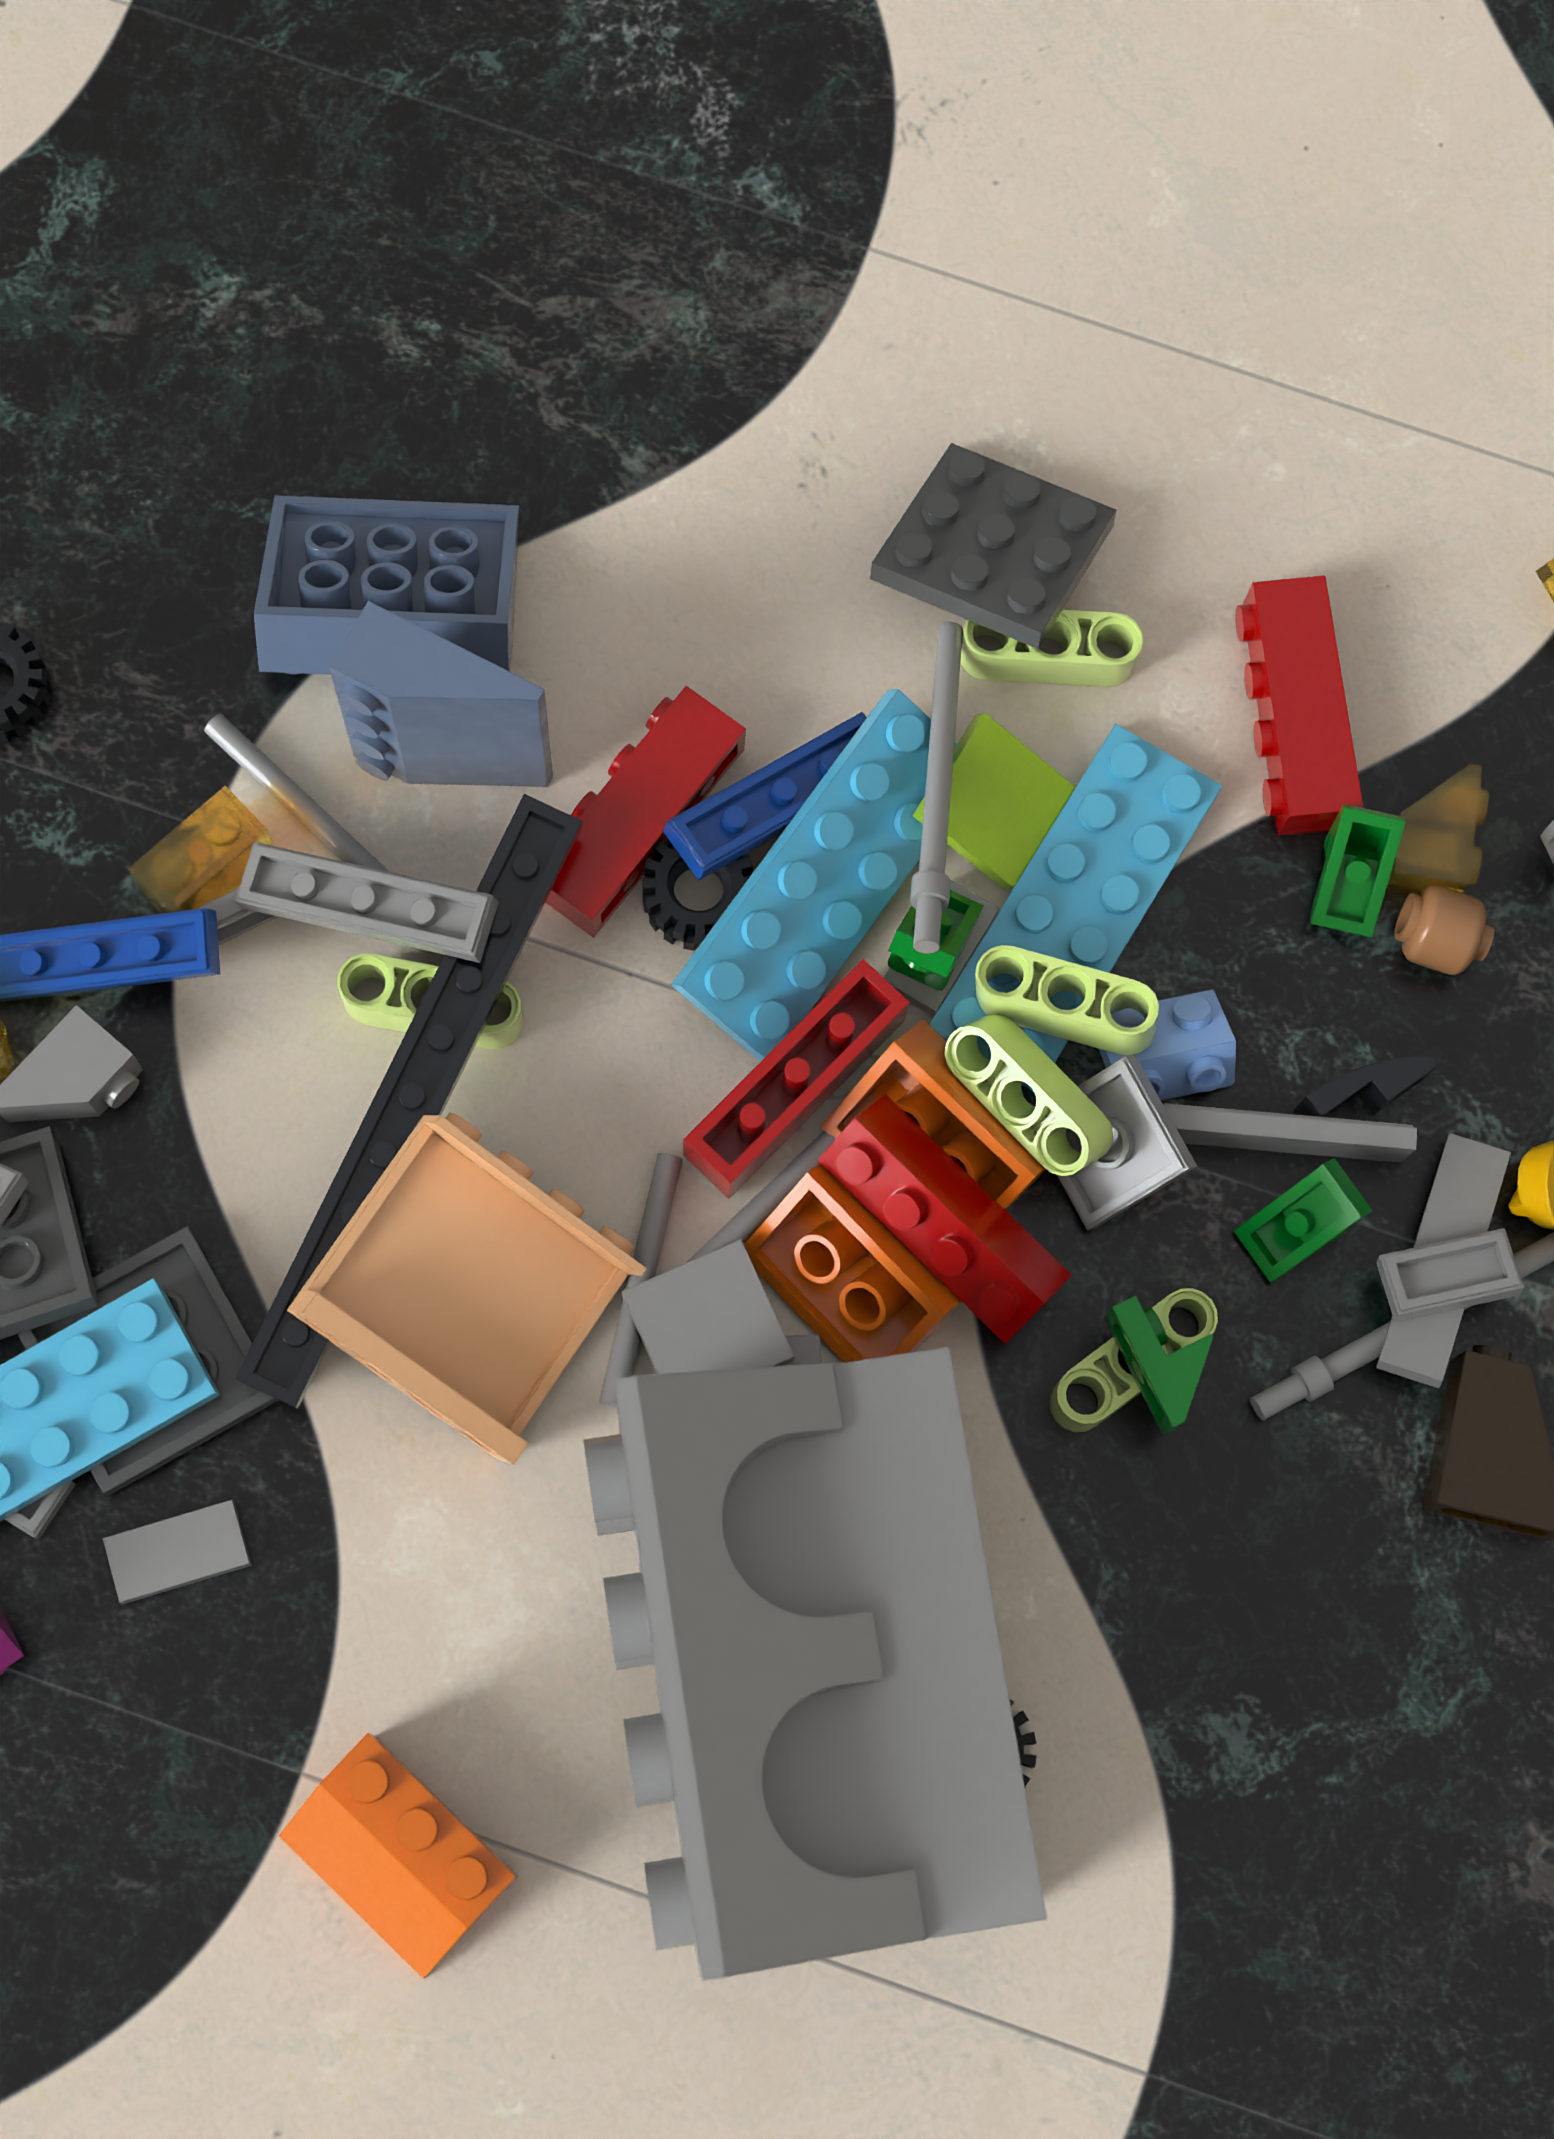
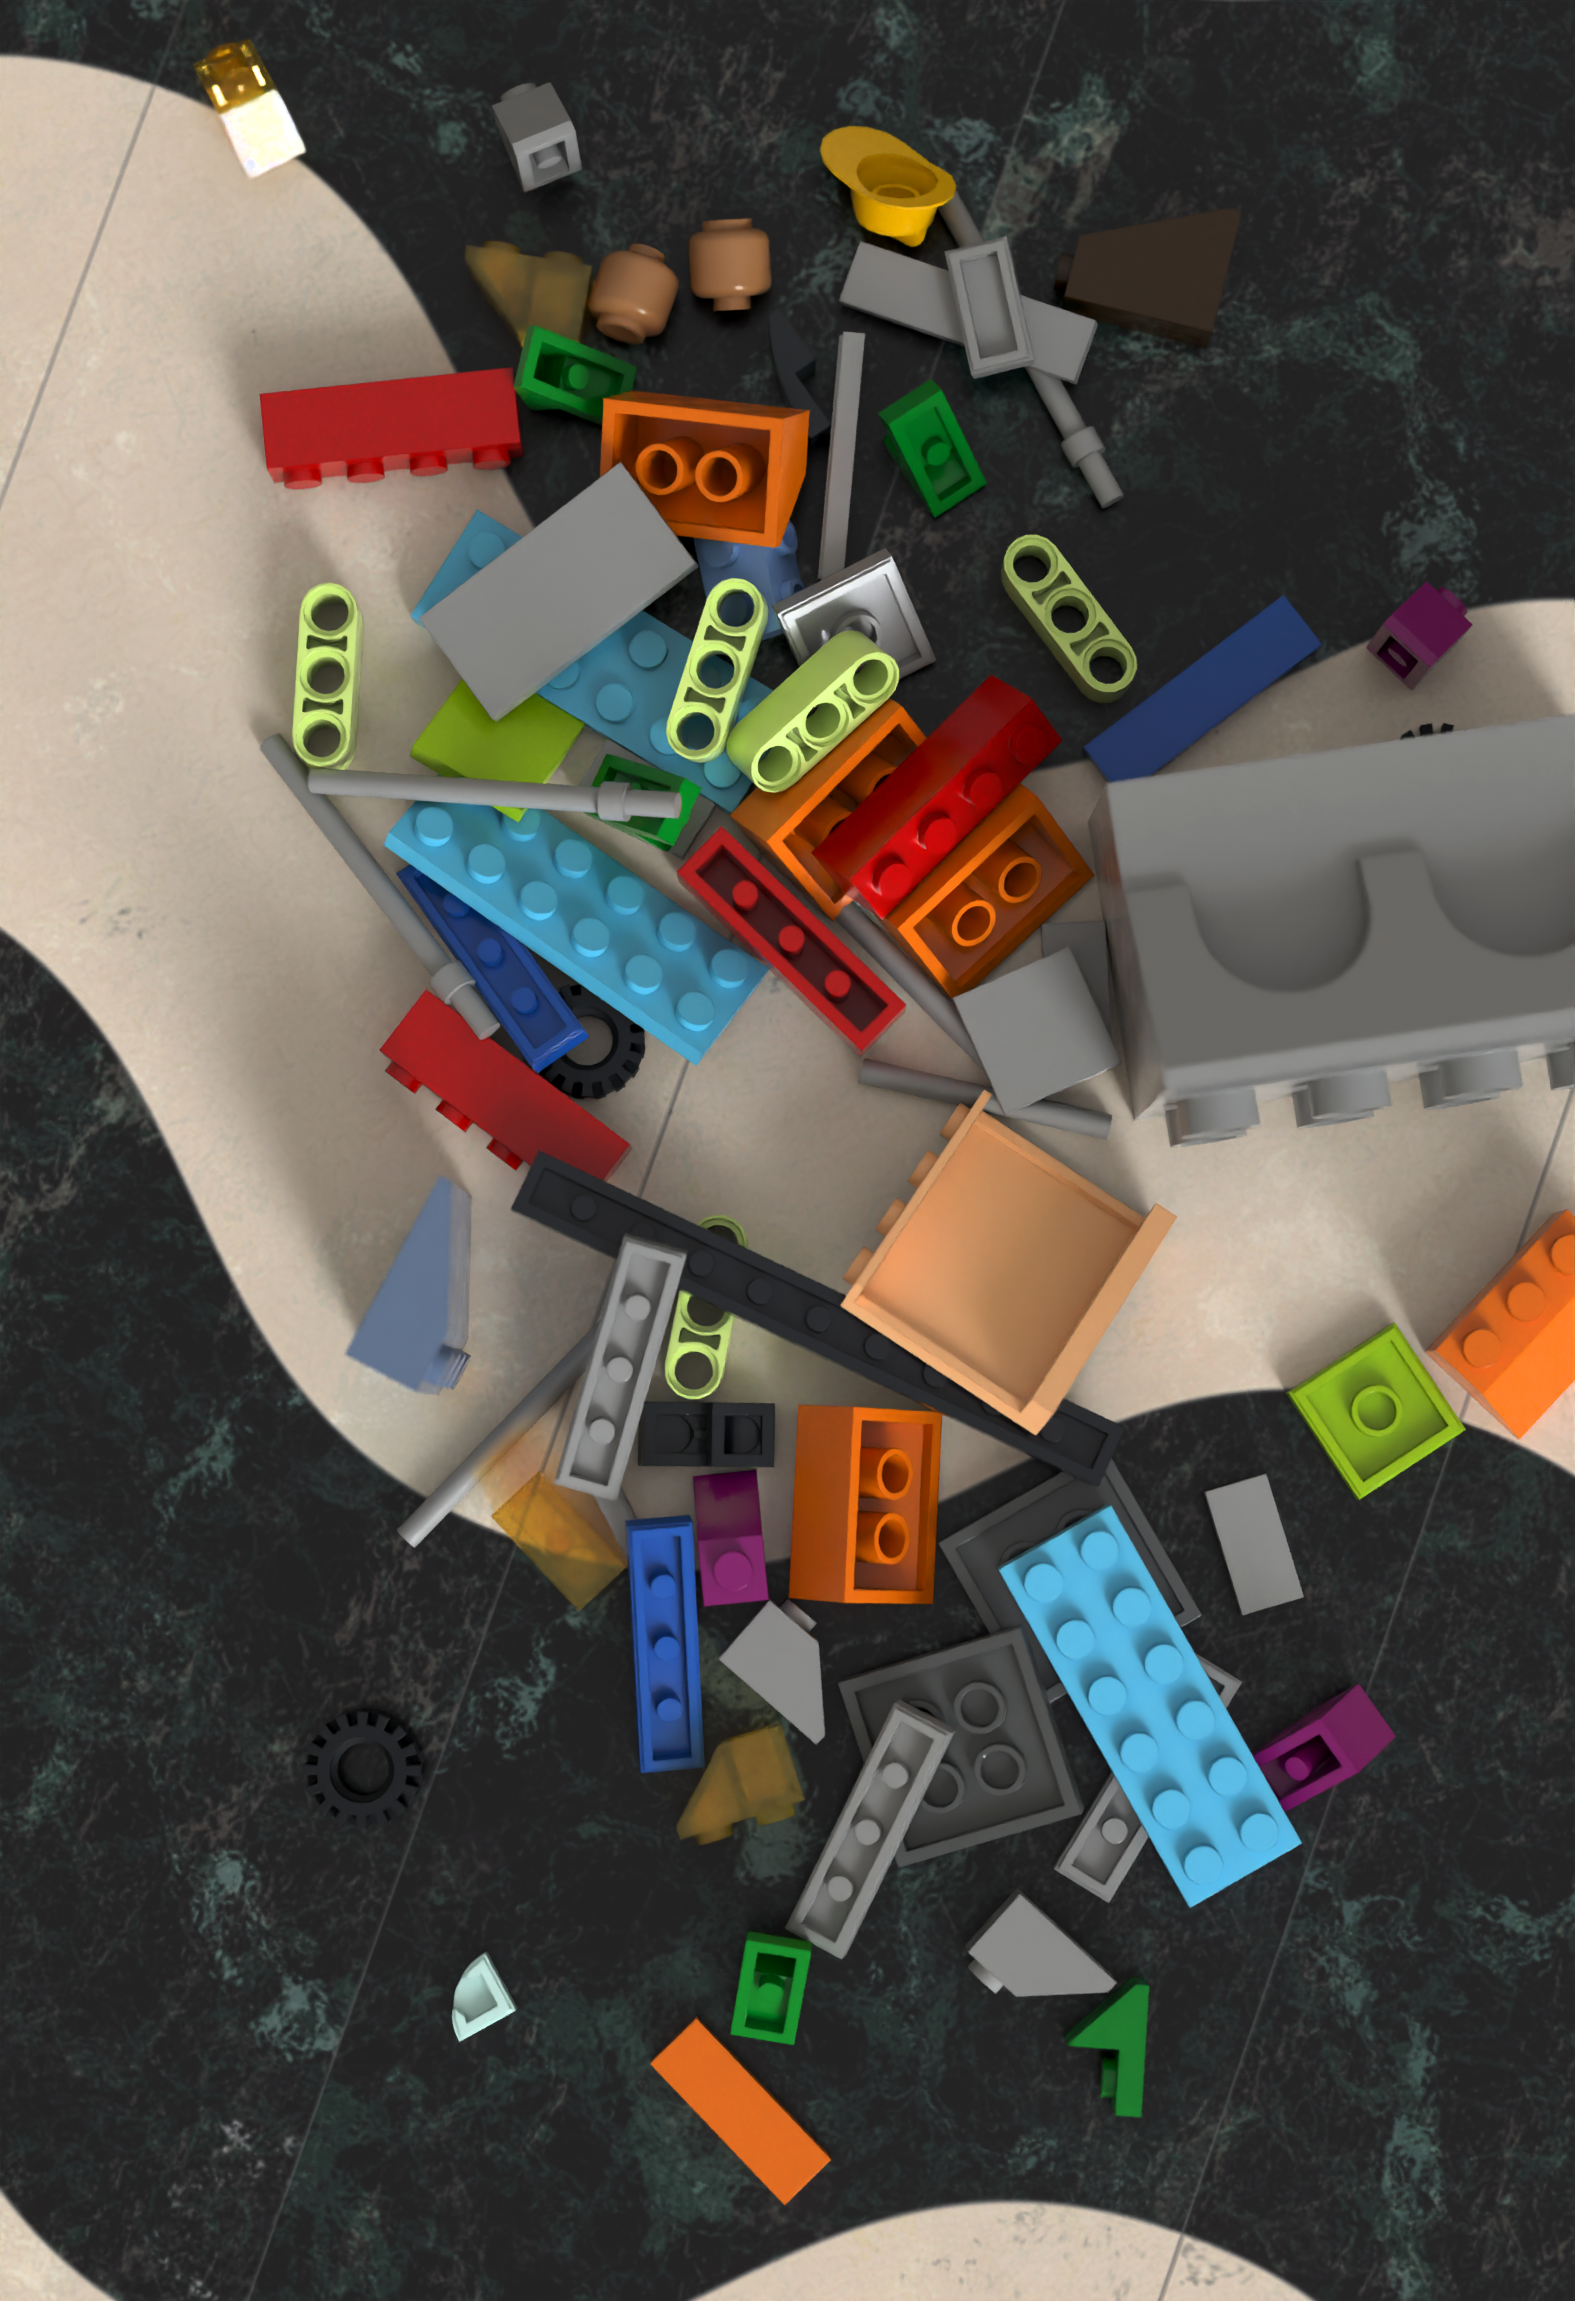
camera: 80 degrees left, 10 degrees up
(197, 1024) = (730, 1538): none -> magenta slope
(227, 1155) = (865, 1505): none -> orange slope
(306, 1005) = (707, 1434): none -> black slope
(312, 1682) = (1375, 1411): none -> lime tile
(418, 559) = (258, 1358): sand blue slope -> none
(757, 747) = (449, 977): none -> light grey bar
(993, 545) = (221, 733): dark grey plate -> none
(1059, 1503) = (1204, 695): none -> blue tile
(1131, 1727) = (1420, 633): none -> magenta slope
(1142, 851) = (558, 592): none -> light grey tile
(1163, 1379) = (1101, 585): green slope -> none
(1273, 988) = (710, 462): none -> orange slope
(1480, 1023) = (729, 263): none -> medium nougat head

